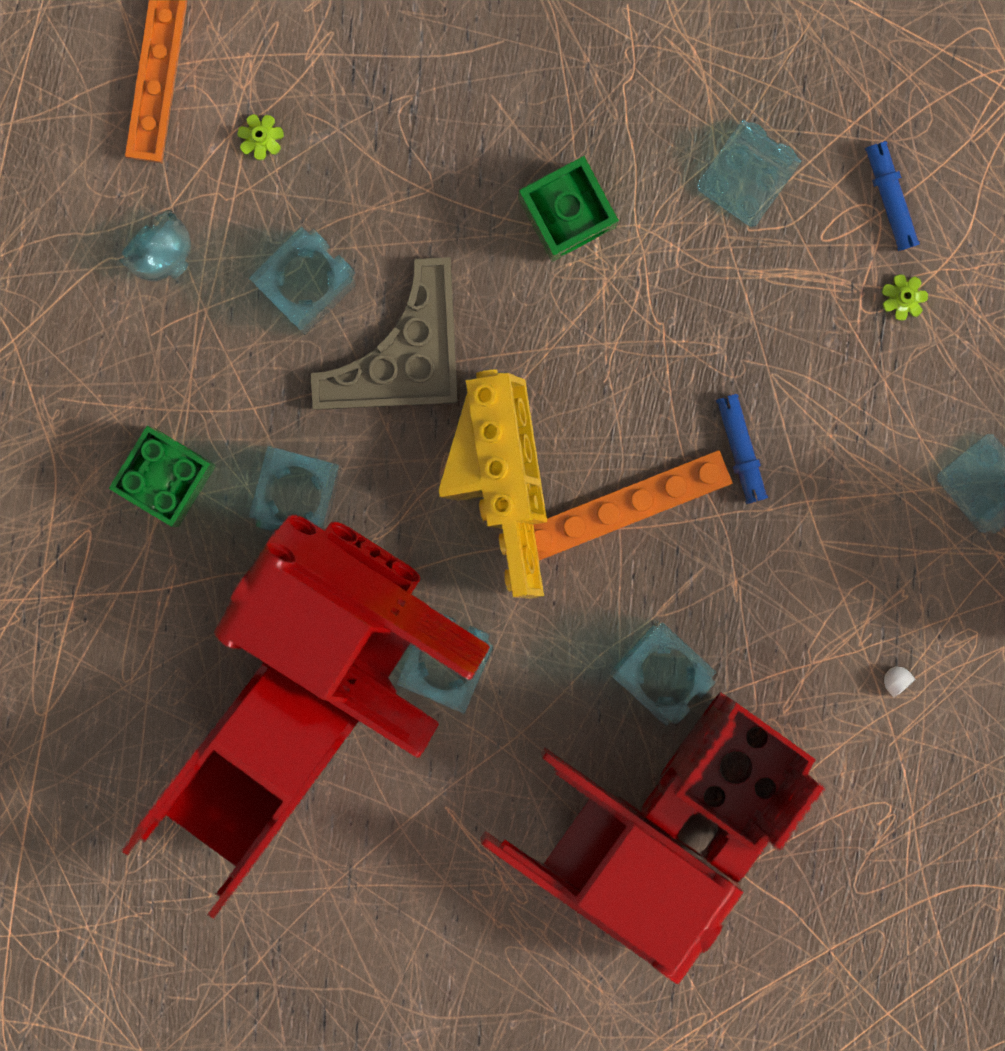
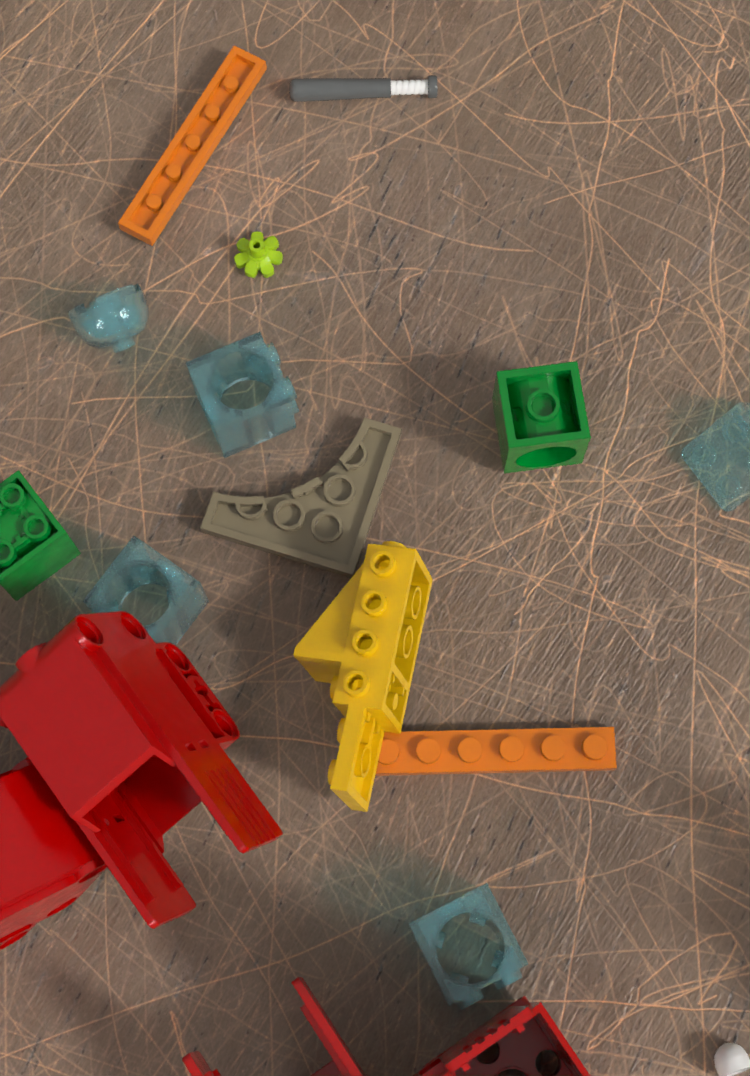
camera: 20 degrees right, 15 degrees down
(454, 696) = (235, 883): clear light blue brick -> none
(742, 449) = (639, 736): blue pin -> none

